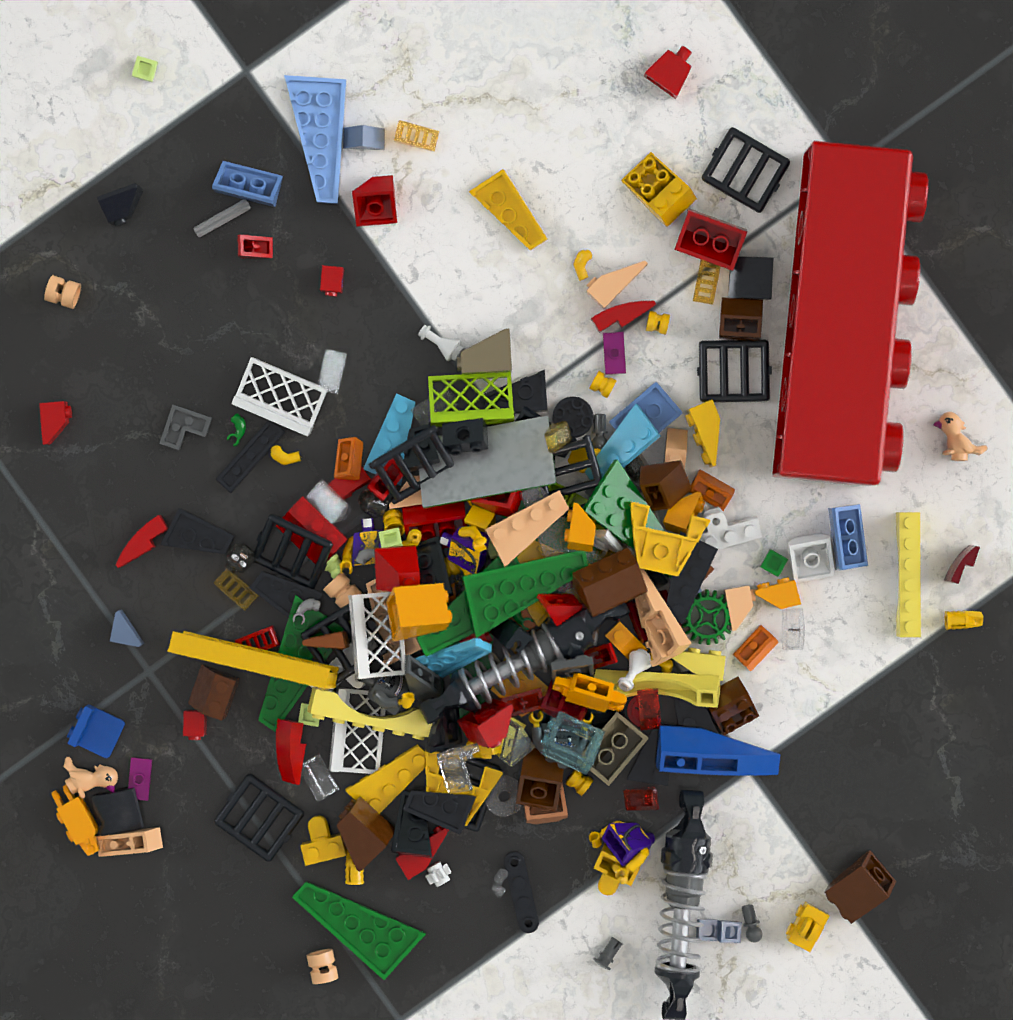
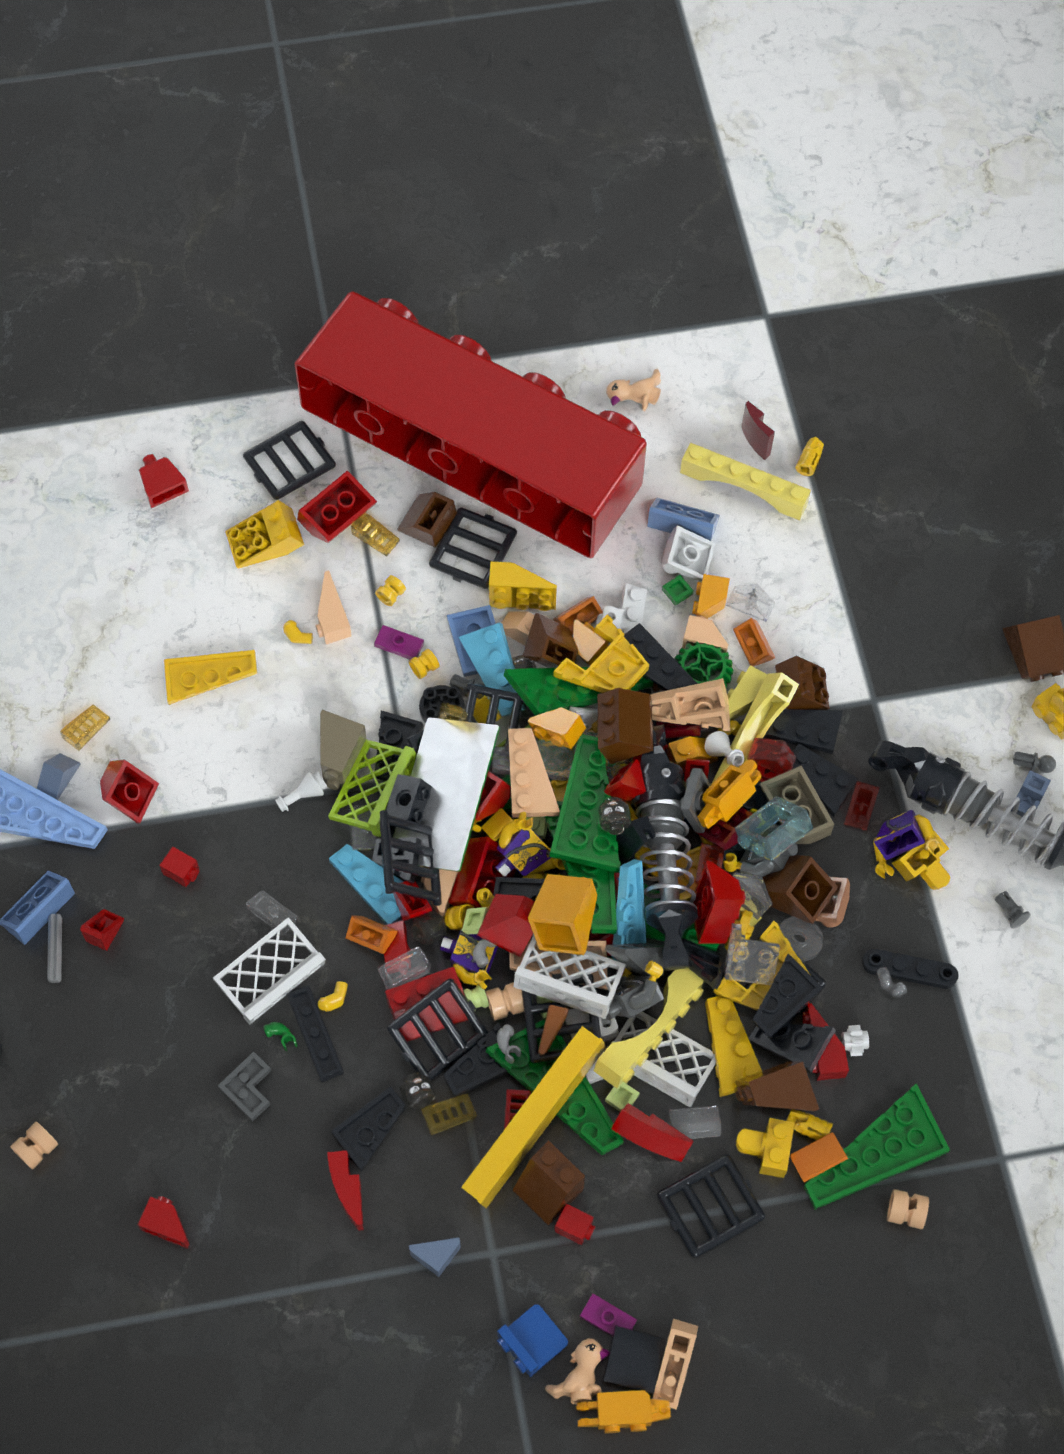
camera: 70 degrees left, 25 degrees down
(330, 884) = (818, 1157): none -> orange slope
(515, 614) = (614, 815): none -> clear smoke head
(579, 781) = (821, 855): yellow wheel -> none
(622, 314) = (364, 619): red slope -> none
(710, 753) = (840, 721): blue wedge -> none
(751, 278) = (393, 495): black slope -> none

